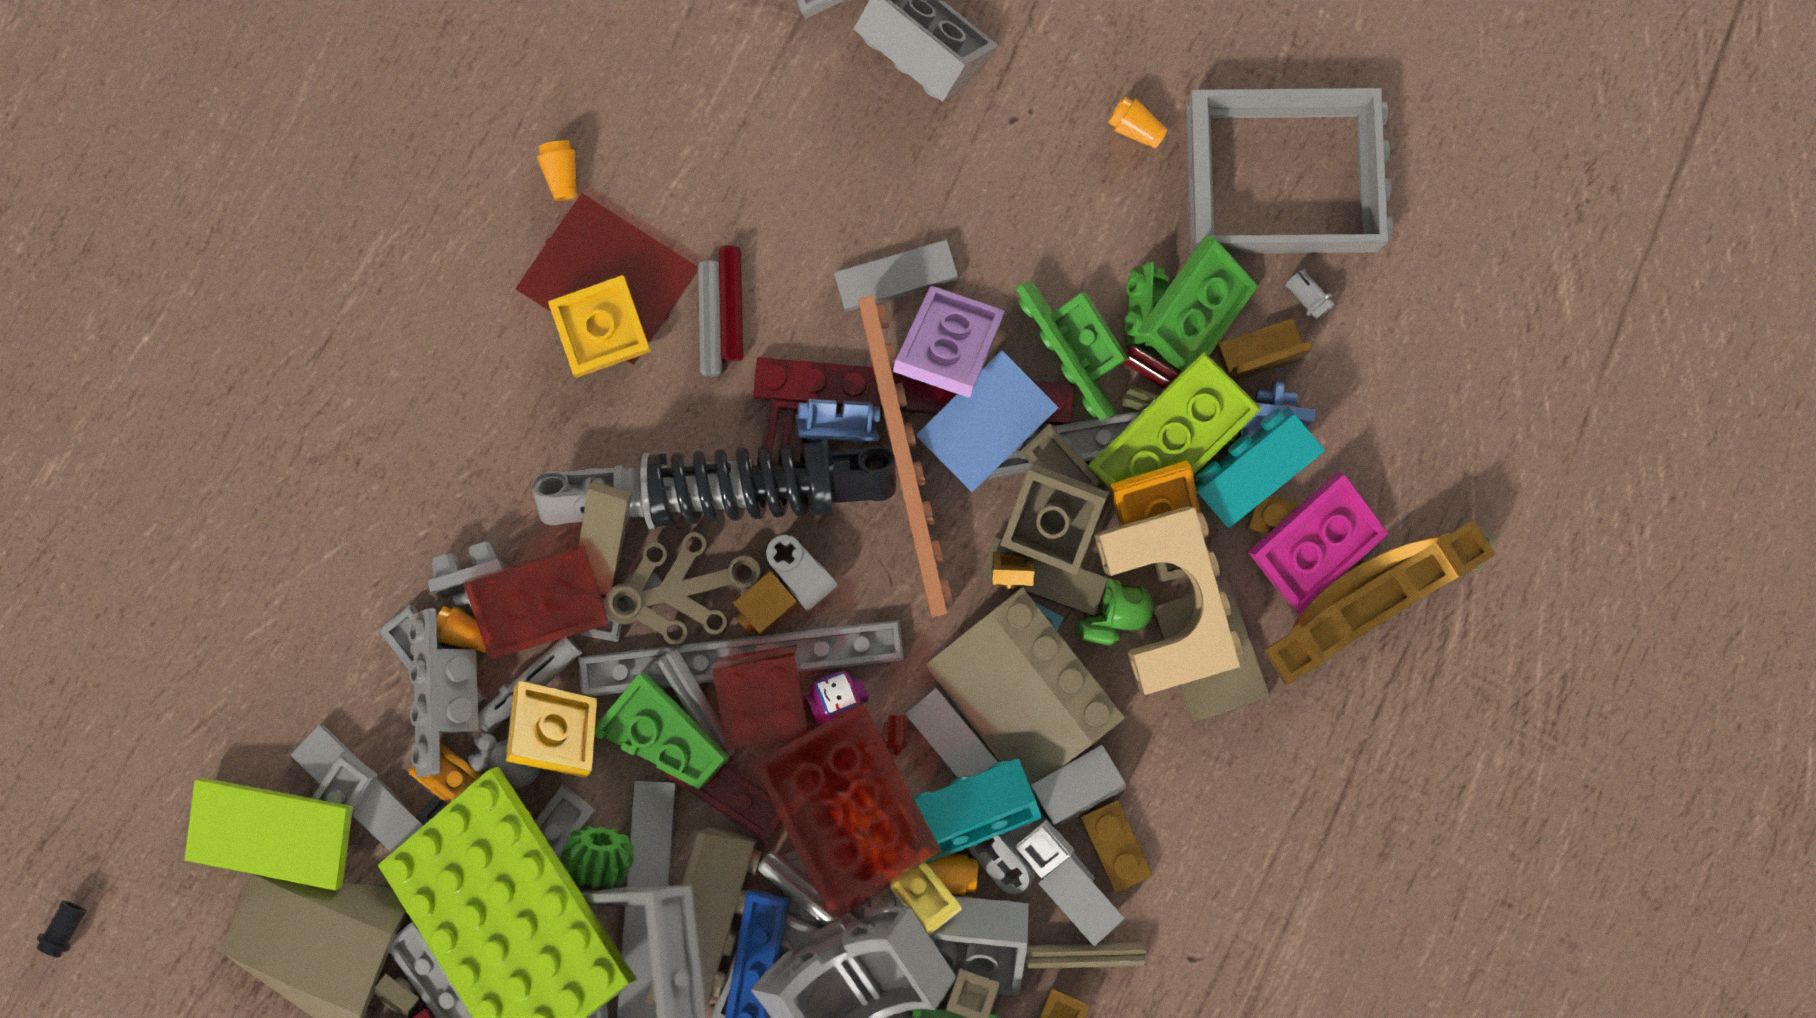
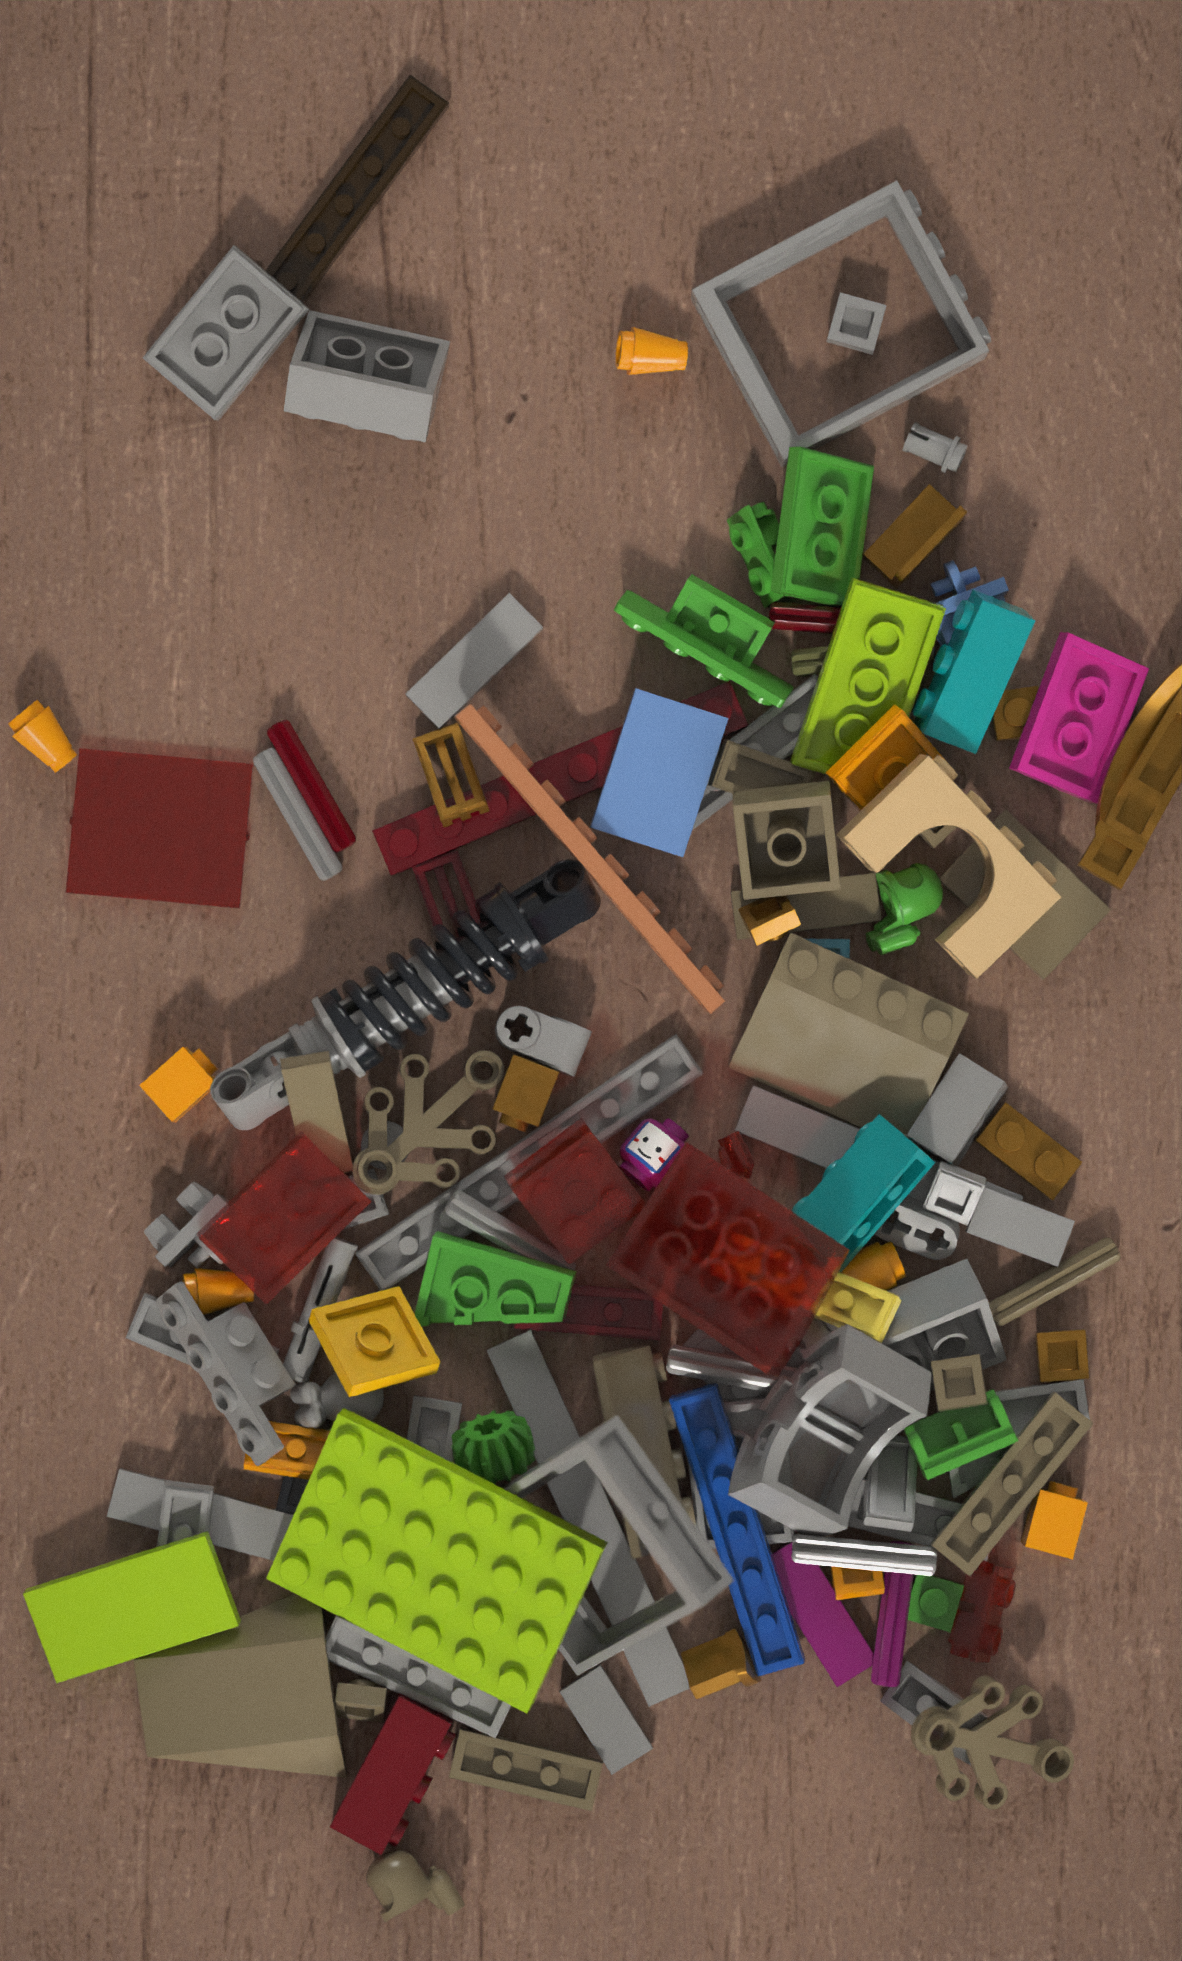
camera: 30 degrees left, 5 degrees up
(517, 465) = (180, 1082): none -> light orange brick
(599, 326) = (184, 887): yellow plate -> none
(819, 421) = (480, 866): medium blue hinge -> none
(831, 372) = (462, 807): none -> pearl gold tile
(949, 341) = (574, 706): lavender plate -> none
(1297, 177) = (856, 323): none -> light grey plate

